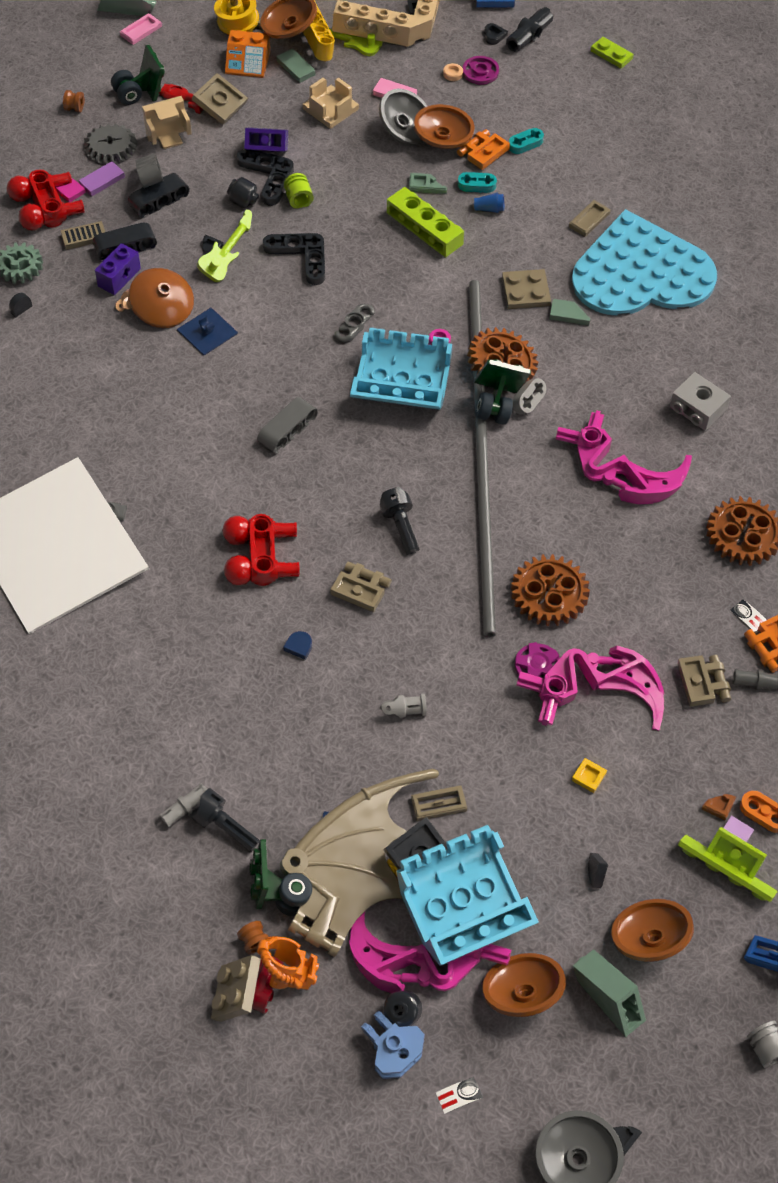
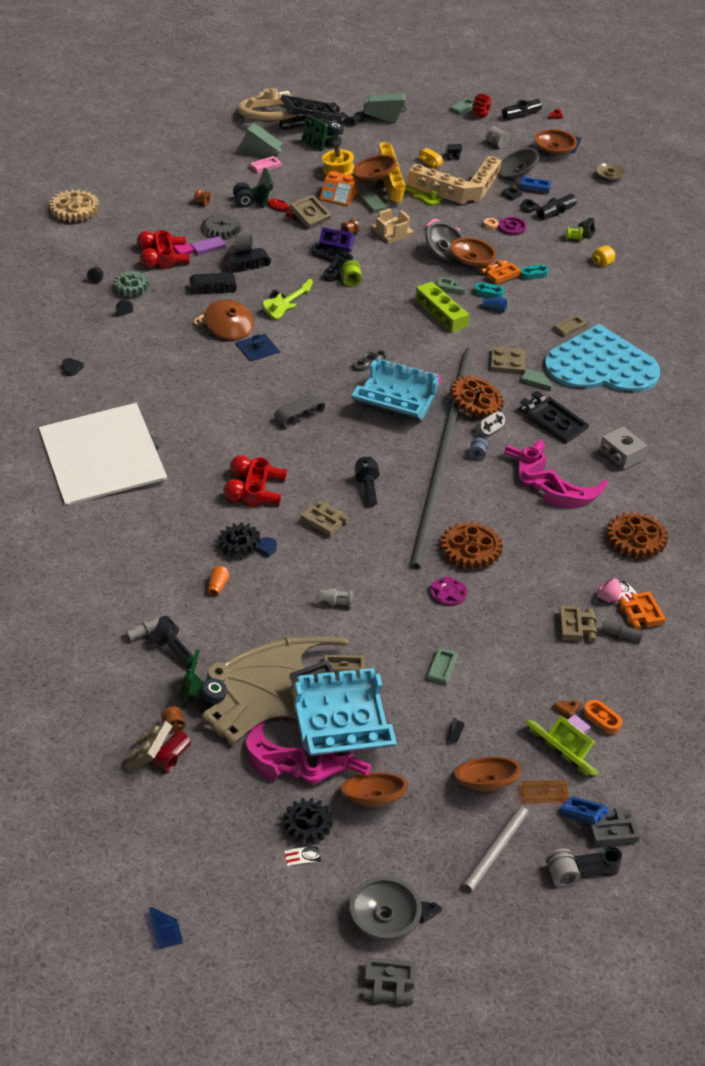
camera: 10 degrees right, 15 degrees down
(81, 235) = (181, 276): dark tan tile -> none
(117, 269) = (201, 297): dark purple brick -> none
(165, 122) = (266, 217): tan panel -> none
(242, 192) = (309, 268): black head -> none
(253, 711) = (218, 579): none -> orange cone
(264, 644) = (239, 539): none -> black gear
(277, 115) = (351, 226): none -> dark orange wheel
(301, 970) = (195, 740): orange piece -> none
(309, 250) = (353, 310): black beam -> none
(392, 1044) = (259, 809): medium blue hinge -> none
(411, 1004) = (274, 785): black head -> none
(444, 1051) = (308, 820): none -> black gear
(467, 16) = (511, 193): none -> black tile
(499, 377) = (470, 403): dark green plate -> none
(523, 438) = (476, 445): none -> sand blue wheel
(557, 778) = (442, 666): none -> sand green tile
(561, 70) = (575, 234): none -> lime bush
(563, 677) = (519, 607): dark pink piece -> none
(577, 56) = (588, 227): none -> black tile
(589, 775) = (468, 668): yellow tile -> none
(602, 368) = (553, 417): none -> black tile
(606, 99) = (603, 256): none -> yellow head
(611, 991) = (444, 808): sand green slope -> none
(612, 52) = (616, 230): lime plate -> none
(683, 1032) = (495, 849): none -> light grey piece
(724, 944) = (545, 794): none -> clear orange tile
(732, 623) = (610, 591): none -> bright pink cone

